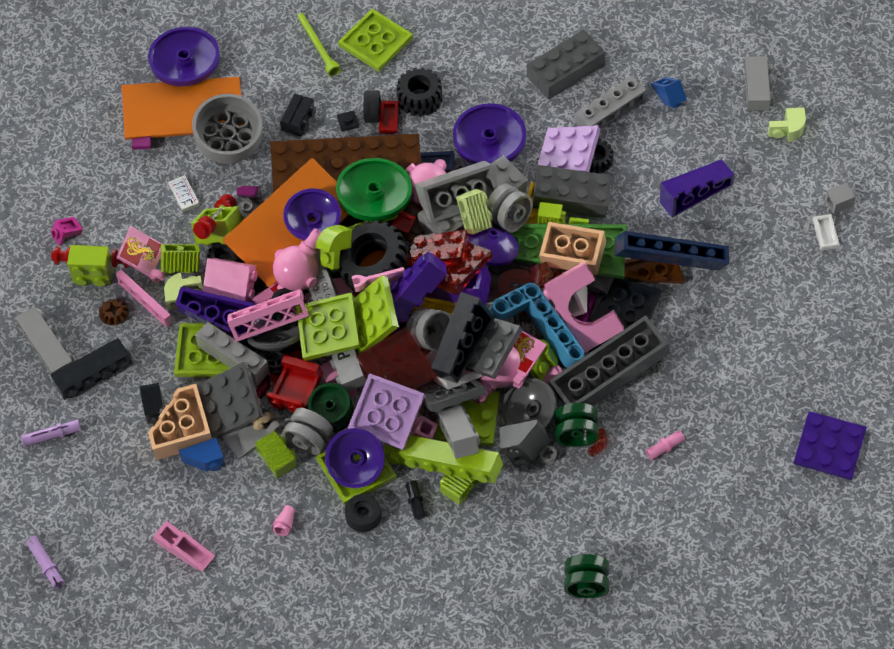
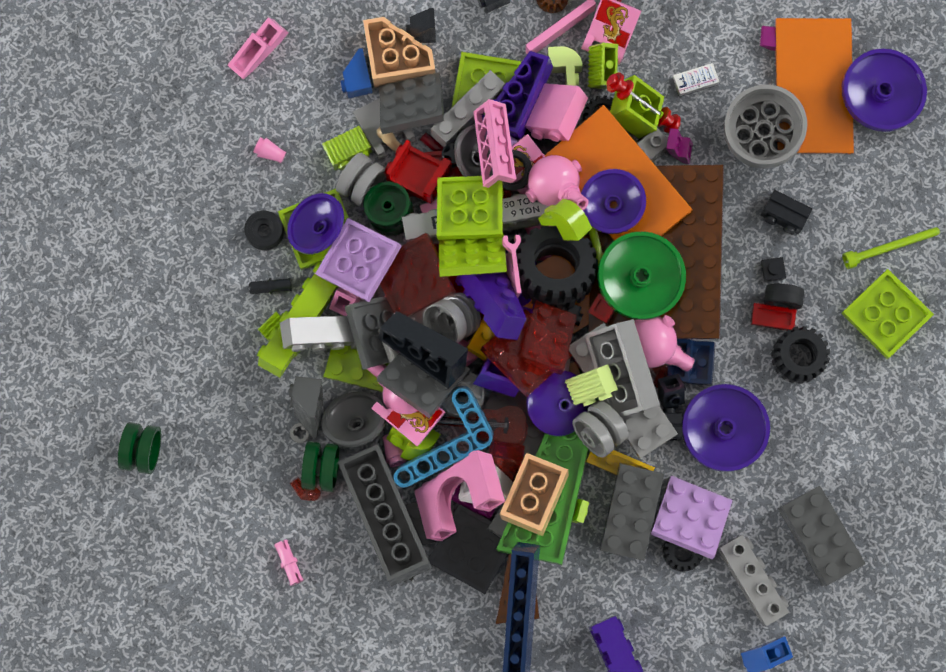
camera: 95 degrees right, 20 degrees up
(551, 213) = (593, 480): lime brick -> none

